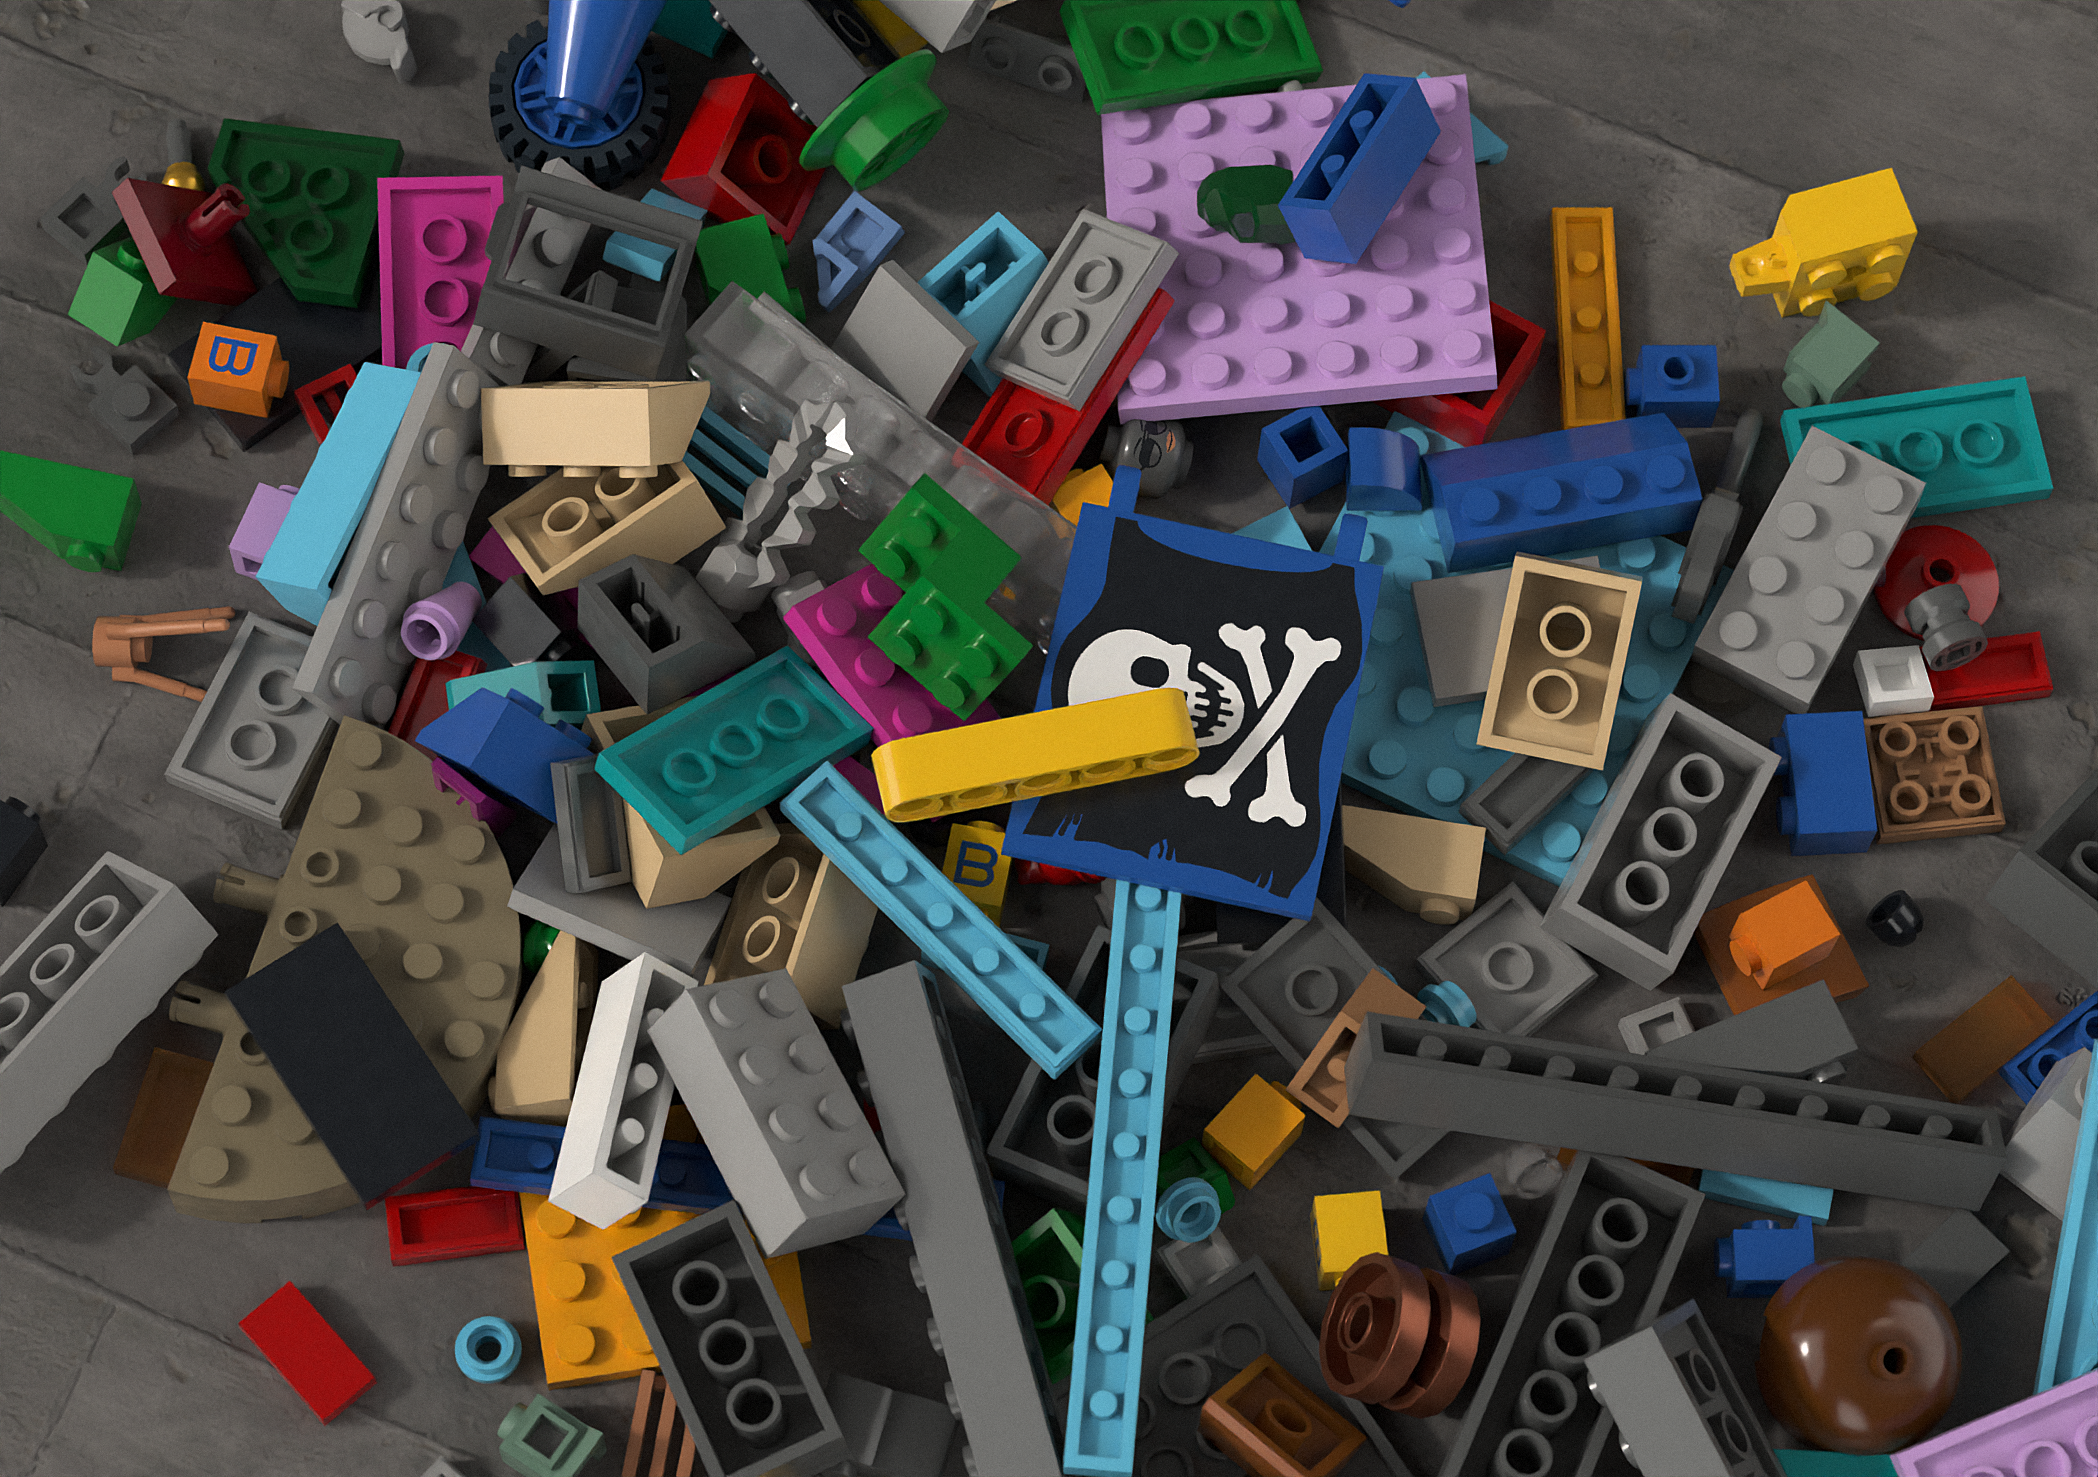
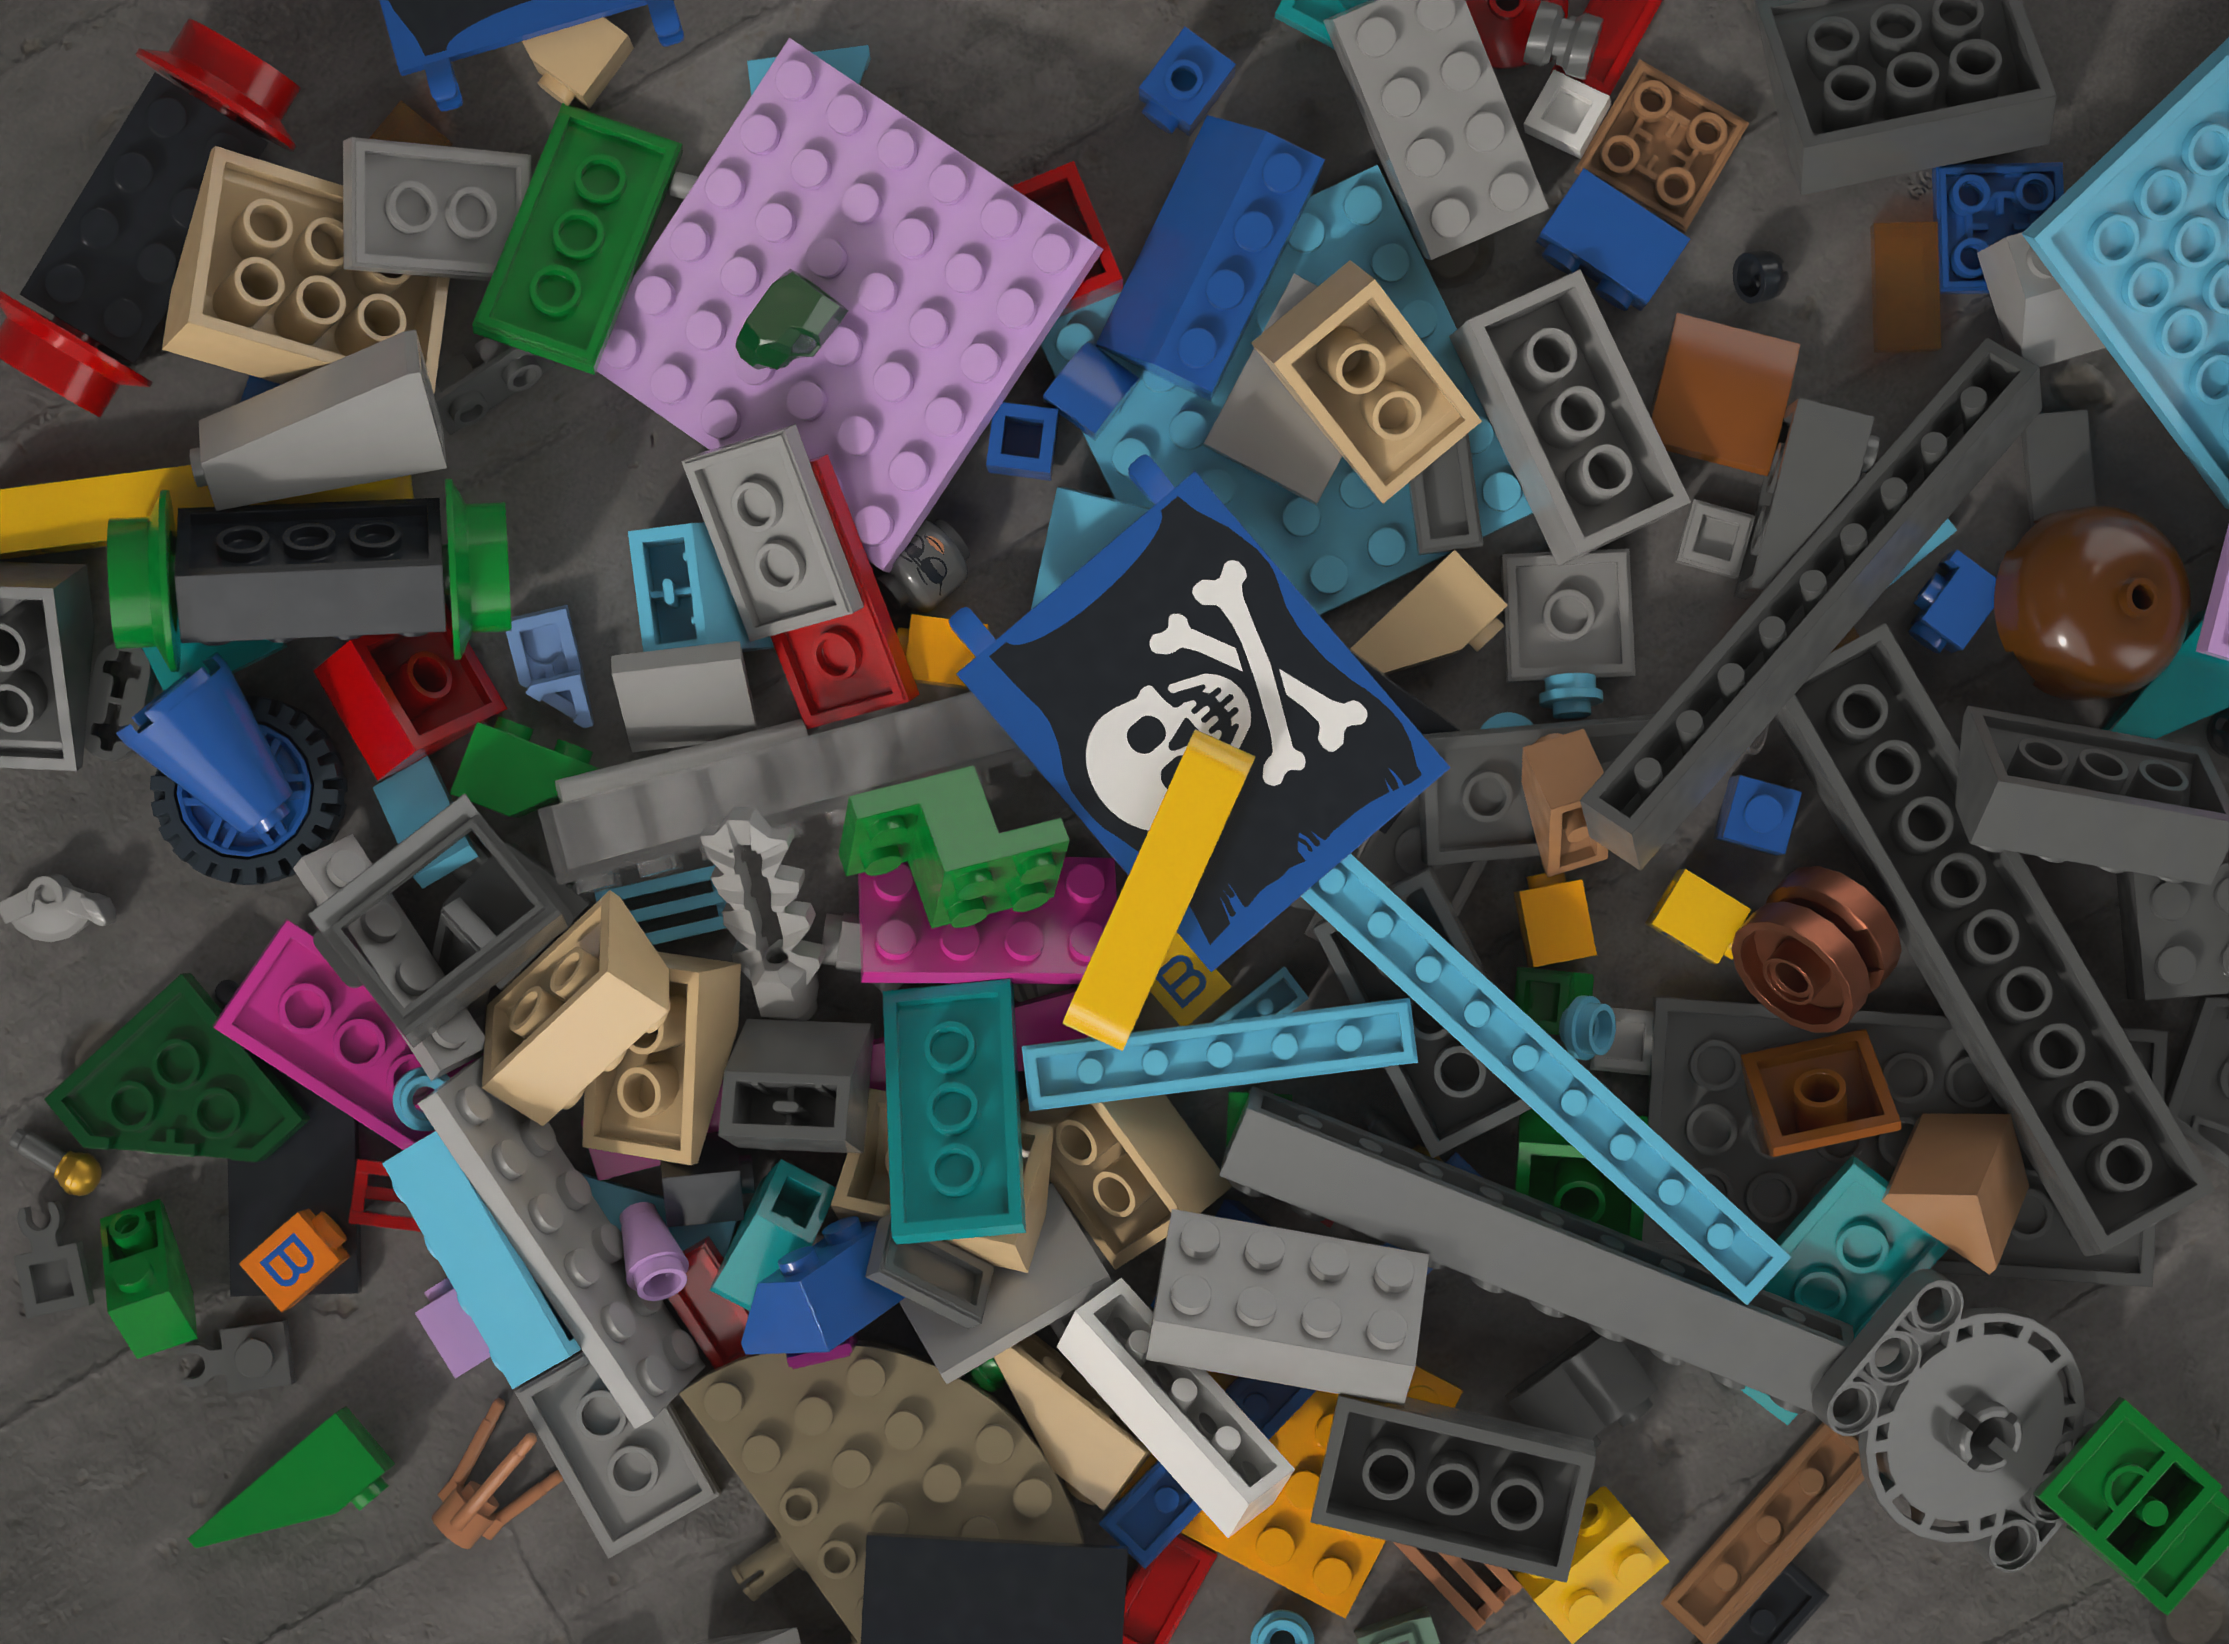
camera: 45 degrees left, 20 degrees up
(188, 239) = (145, 1217): dark red tile -> none
(1359, 168) = (830, 212): blue brick -> none
(1587, 316) = (1070, 104): light orange tile -> none
(1716, 522) = (1346, 157): dark grey piece -> none
(1782, 936) = (1725, 390): orange brick -> none

